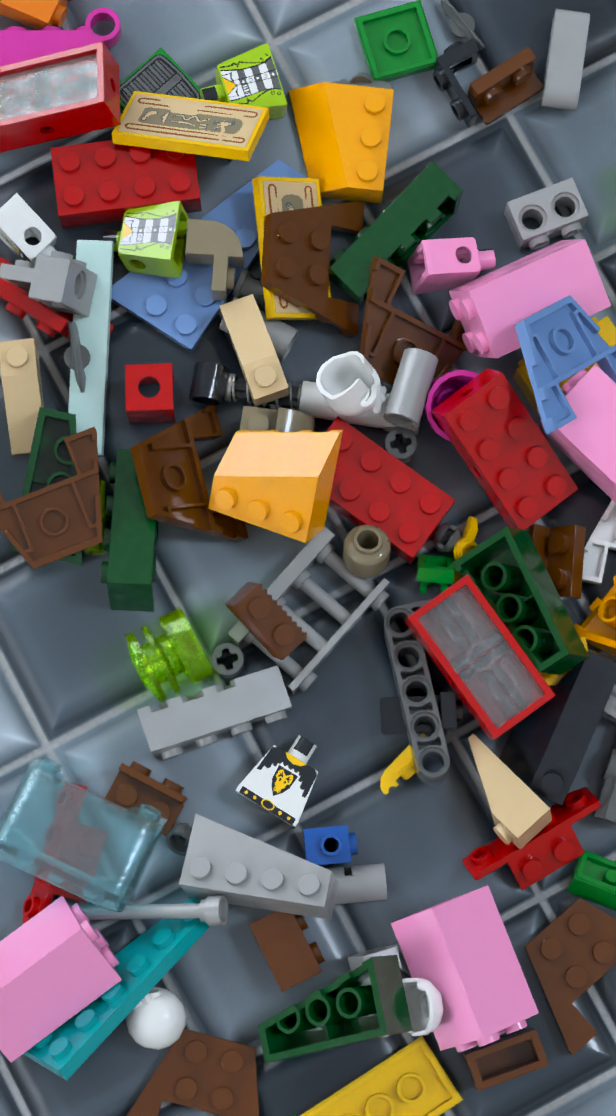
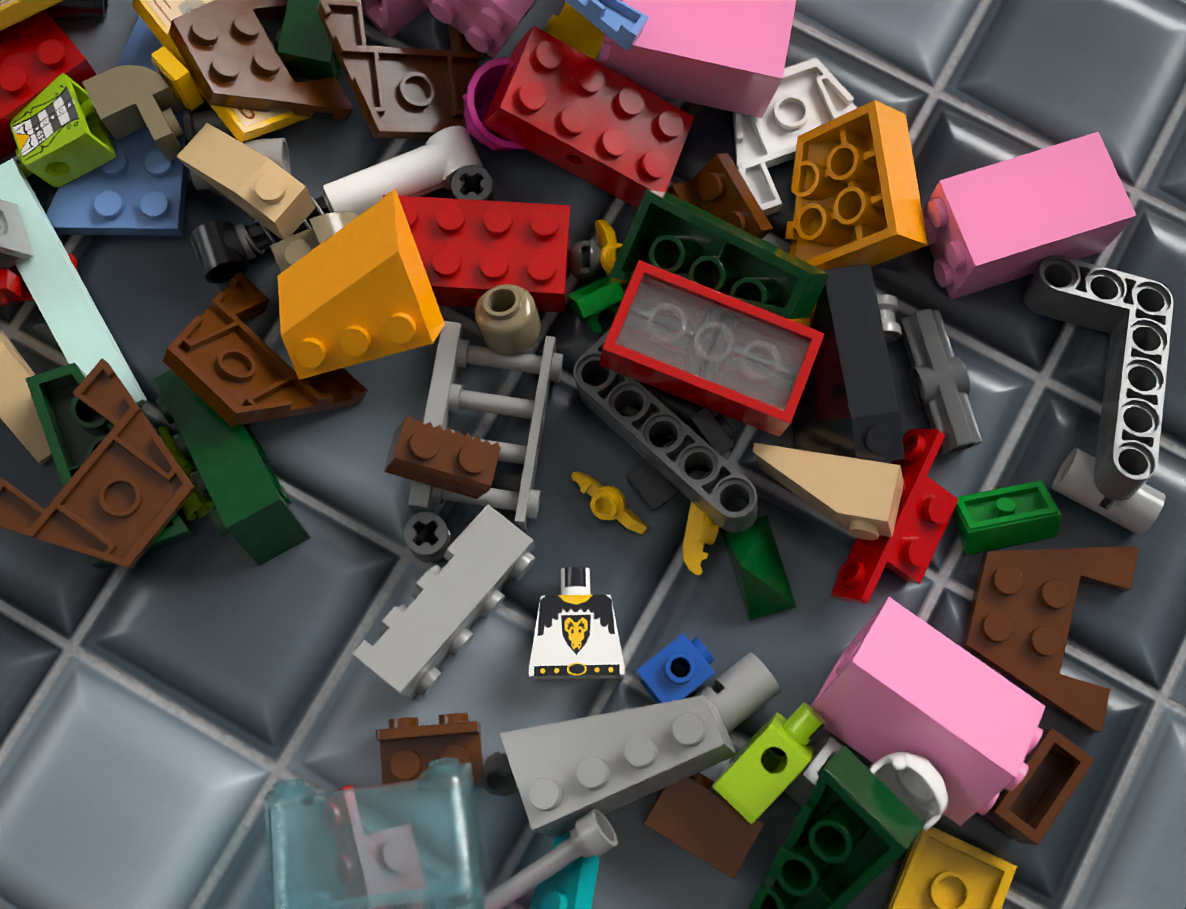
camera: 30 degrees left, 5 degrees down
(77, 356) = (45, 305): dark grey piece -> none
(154, 409) = (153, 295): red piece -> none
(169, 655) = (355, 569): clear neon green wheel -> none
(251, 250) = (177, 78): none -> yellow tile
(341, 939) = (758, 774): none -> lime torso
(350, 385) = (375, 146): white helmet -> none
(357, 711) = (609, 503): none -> yellow piece
(410, 388) = (445, 115): light grey pin -> none
(426, 815) = (759, 570): none -> dark green slope

